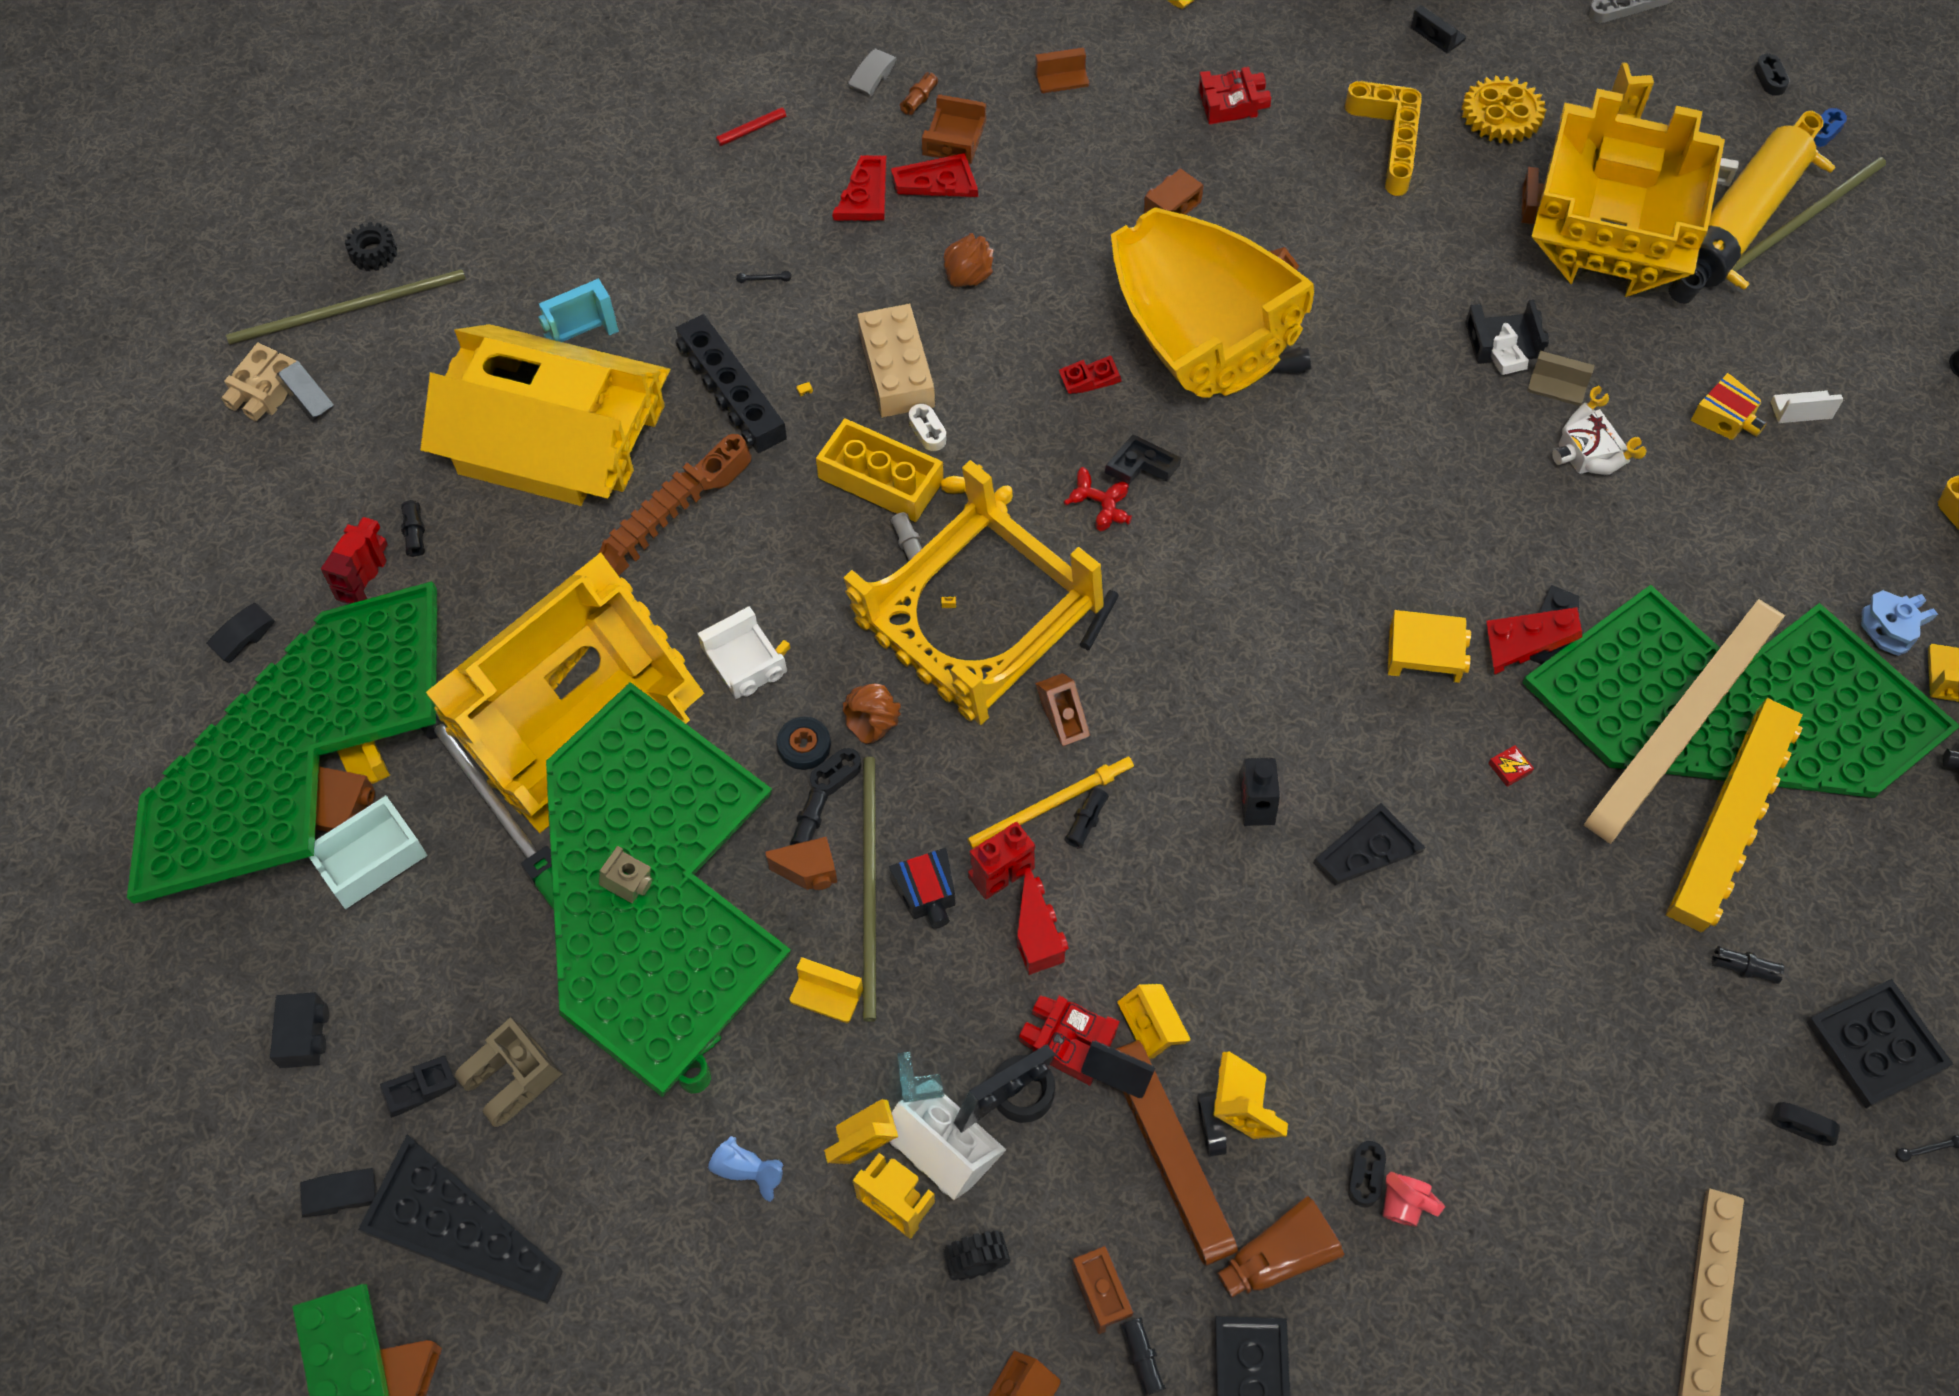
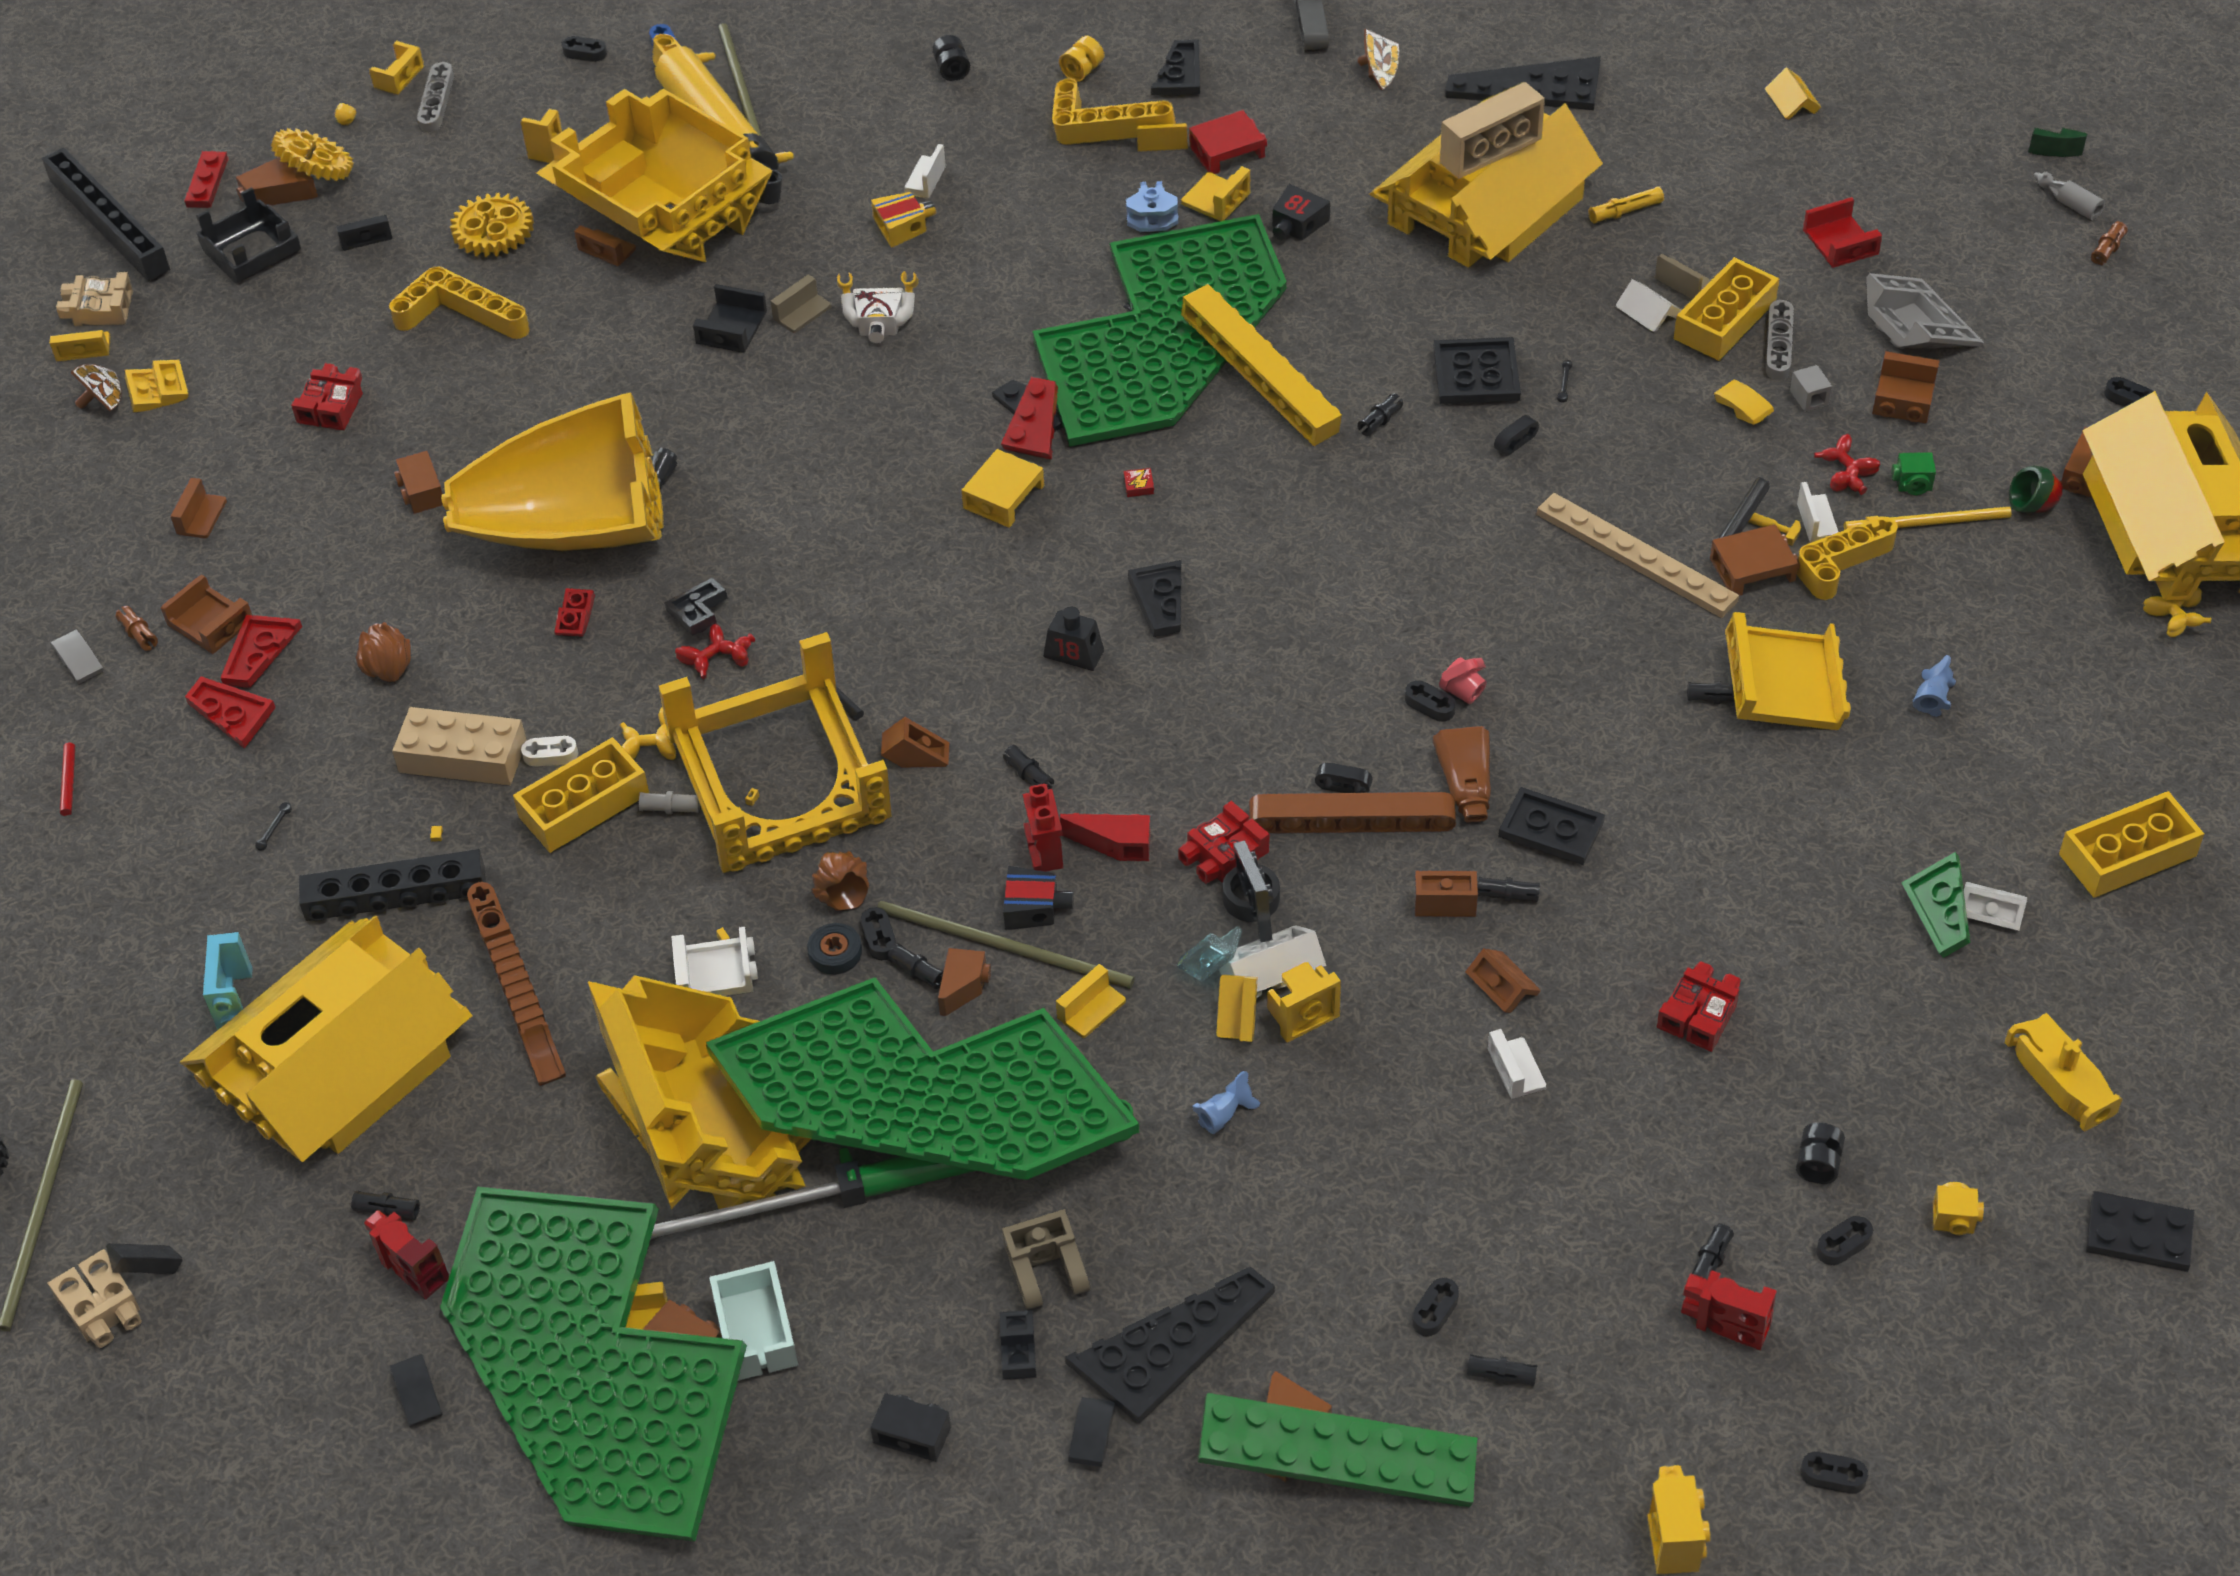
camera: 65 degrees left, 10 degrees down
(624, 885) = (918, 1087): dark tan brick -> none
(976, 1255) = (1381, 962): black tyre -> none
(1102, 775) = (995, 746): yellow bar -> none
(1117, 1069) = (1274, 810): black slope -> none
(1153, 1018) = (1234, 786): yellow panel -> none
(1241, 1100) = (1354, 747): yellow bracket -> none
(1506, 353) = (757, 328): white slope -> none
(1683, 722) = (1168, 358): tan beam -> none

